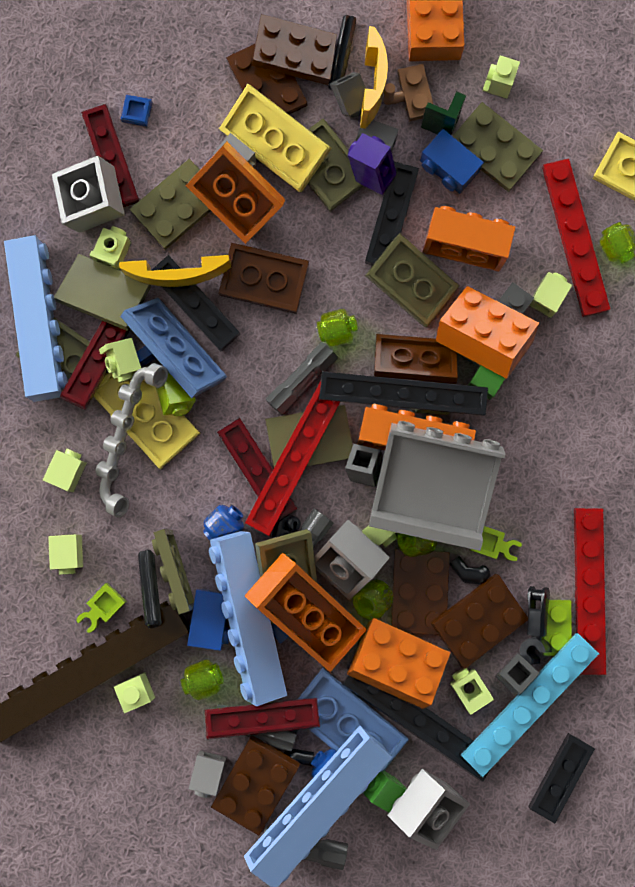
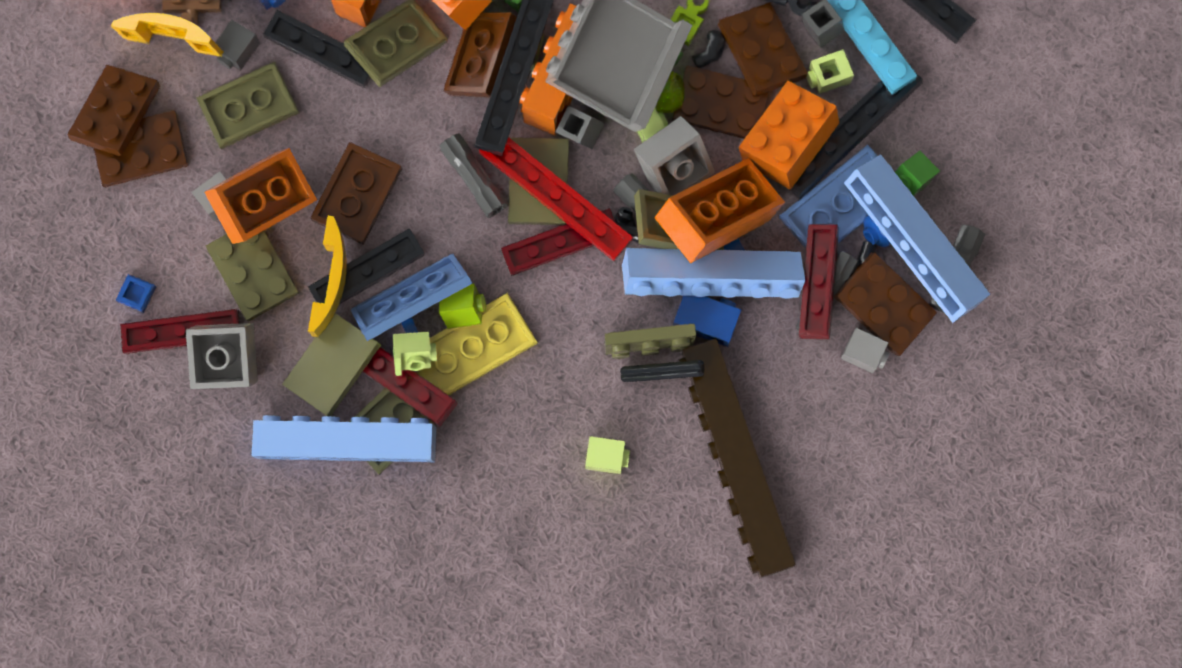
camera: 80 degrees left, 5 degrees down
(65, 470) = (517, 439): yellowish green brick -> none
(103, 605) = (669, 426): lime plate -> none
(113, 255) = (291, 353): yellowish green brick -> none
(131, 394) = (478, 365): light grey bar -> none
(134, 692) = (767, 409): yellowish green brick -> none
(202, 679) = (767, 337): clear neon green head -> none
(223, 521) = (608, 285): blue head -> none
(275, 138) = (206, 147): light yellow tile -> none
(337, 327) = (427, 127): clear neon green head -> none
(343, 48) = (124, 61): black axle -> none
(349, 93) = (178, 62): dark grey brick -> none
(372, 163) = (264, 50): dark purple brick -> none
(373, 599) = (721, 147): clear neon green head -> none
(428, 809) = (938, 133): light grey brick -> none

